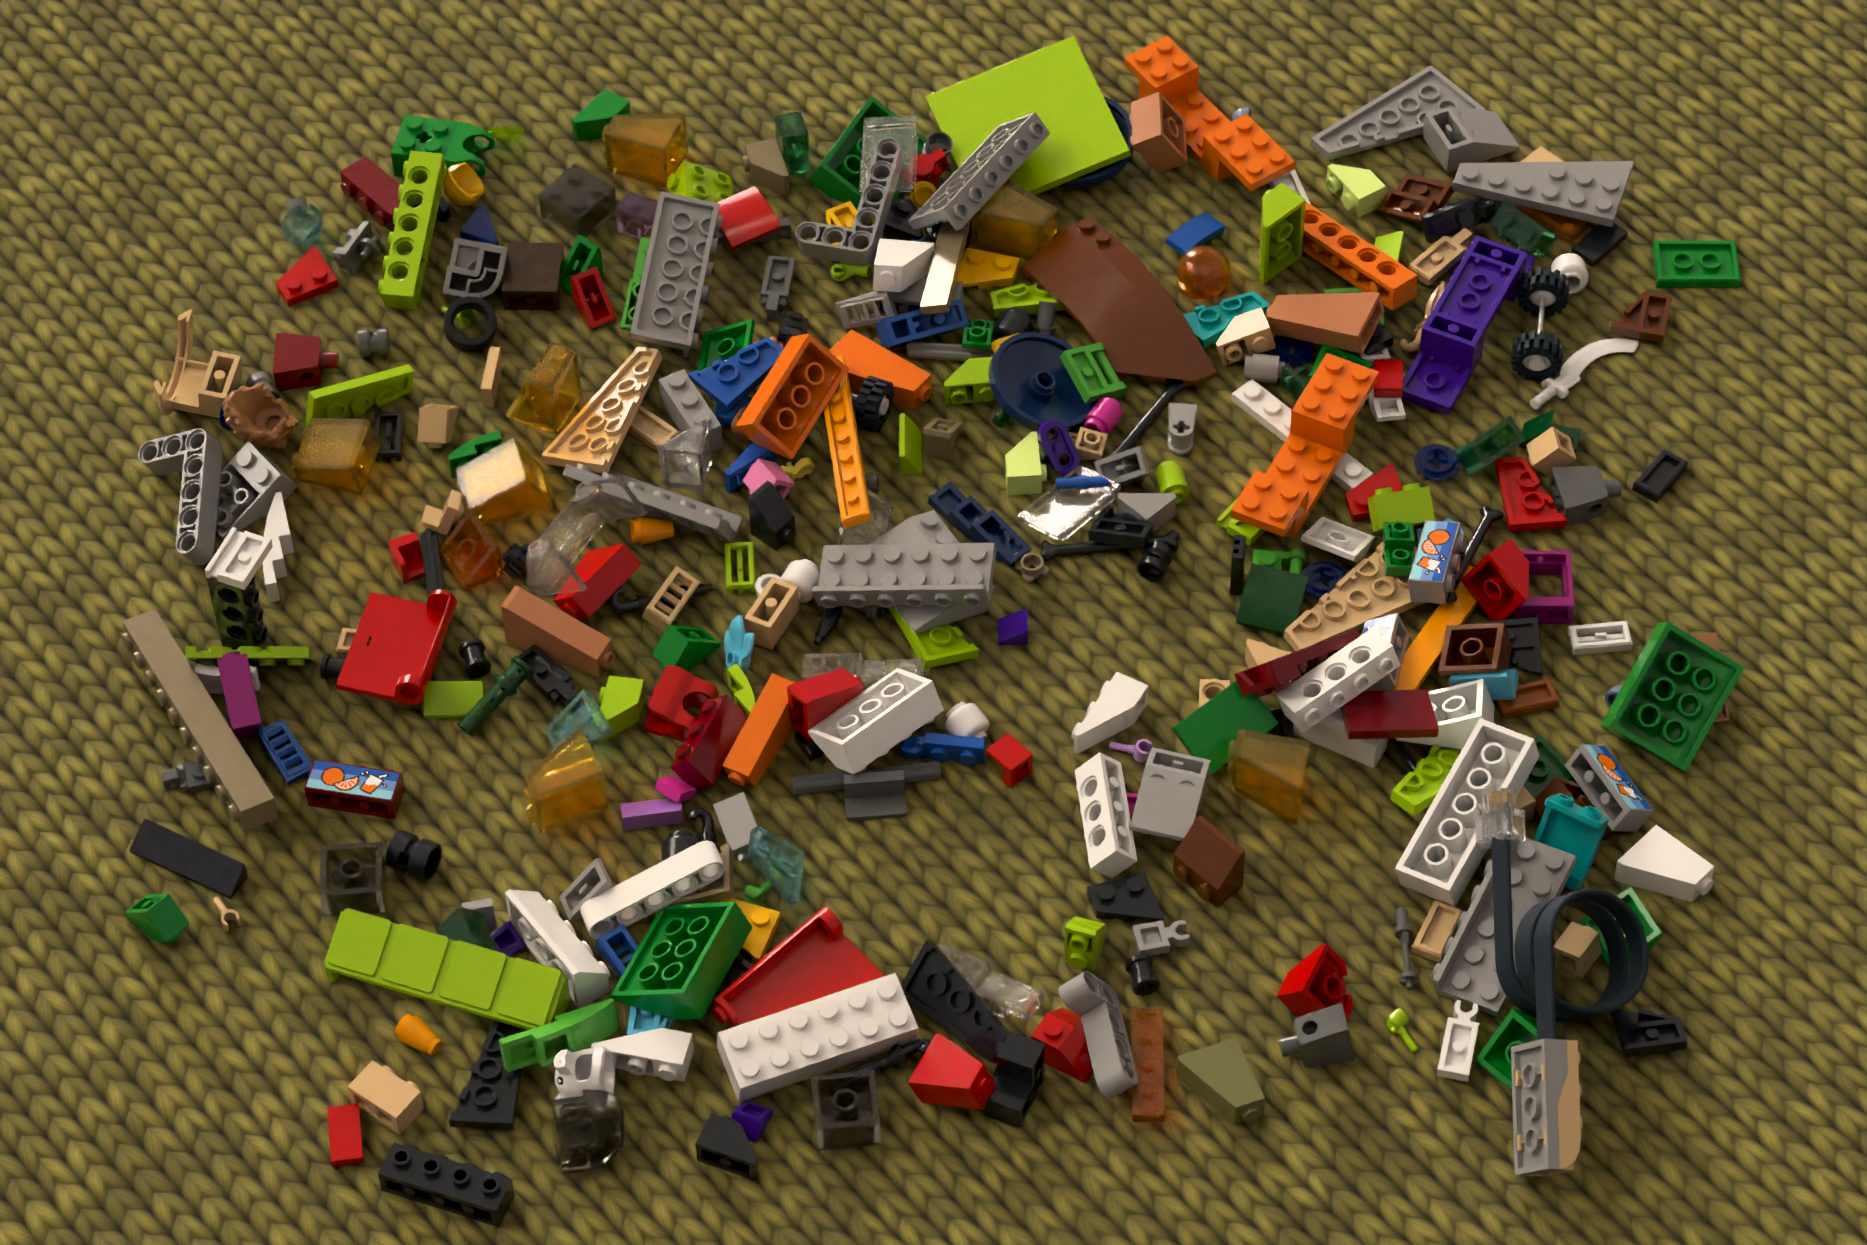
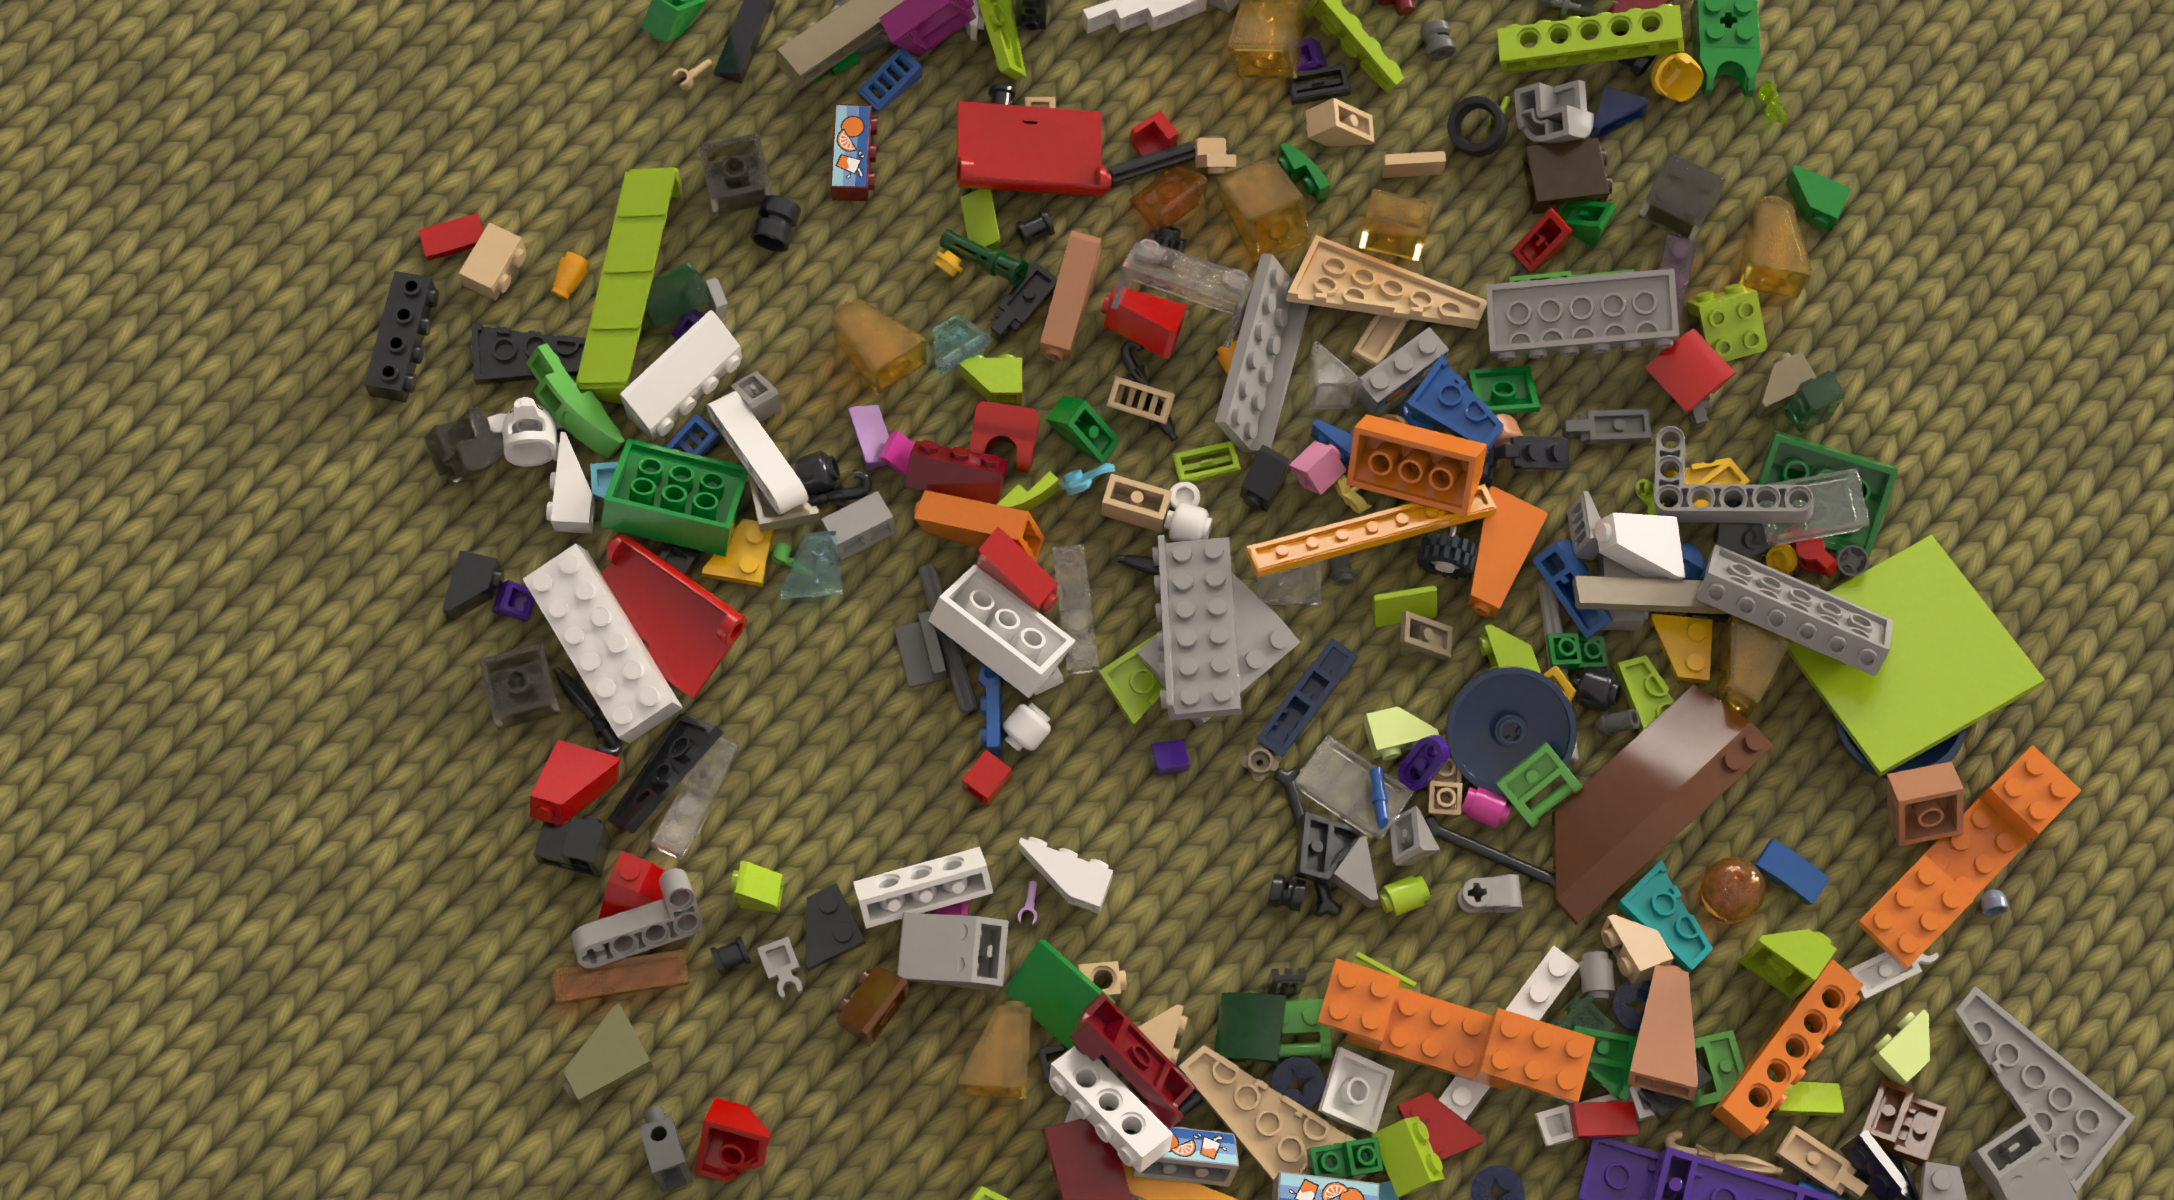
camera: 75 degrees right, 20 degrees up
(492, 728) = (948, 263): none -> yellow plate

